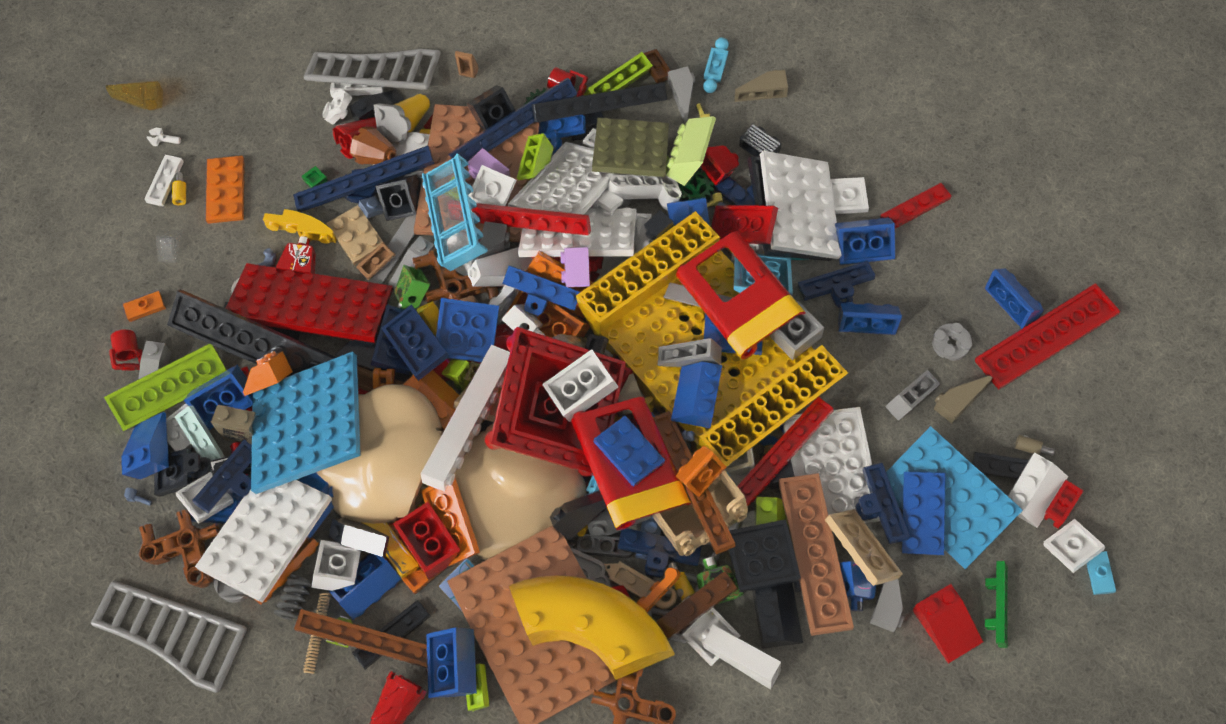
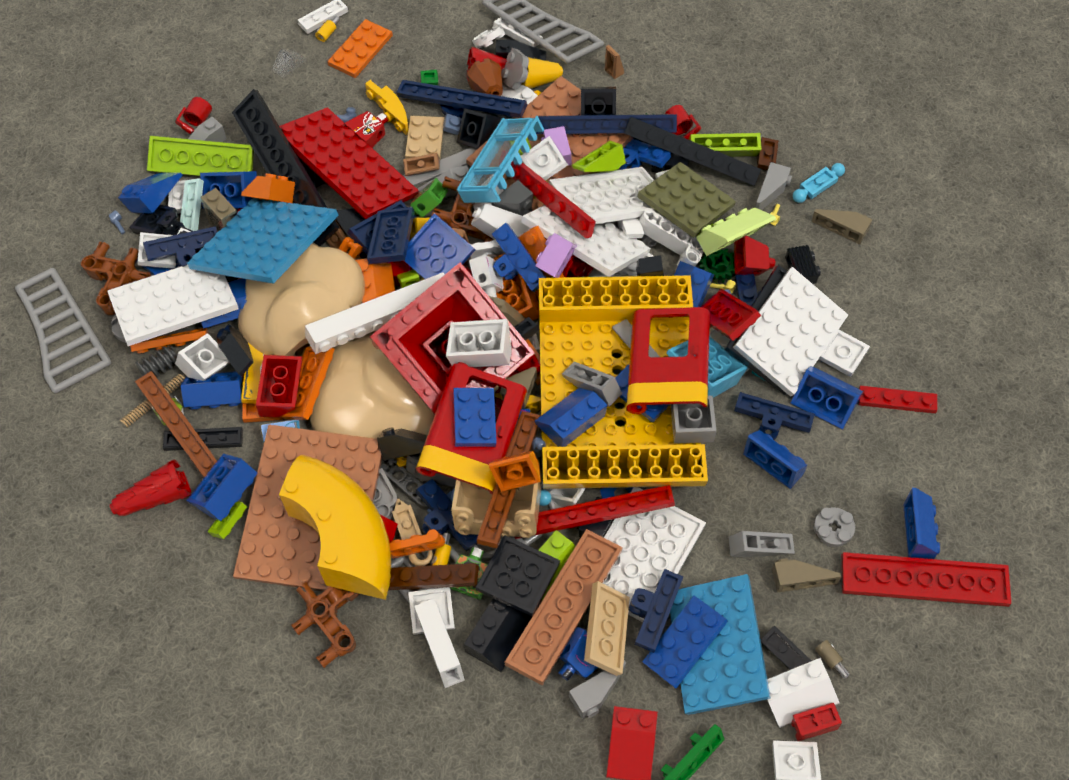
camera: 35 degrees right, 5 degrees down
(144, 306) = (232, 94): orange plate -> none

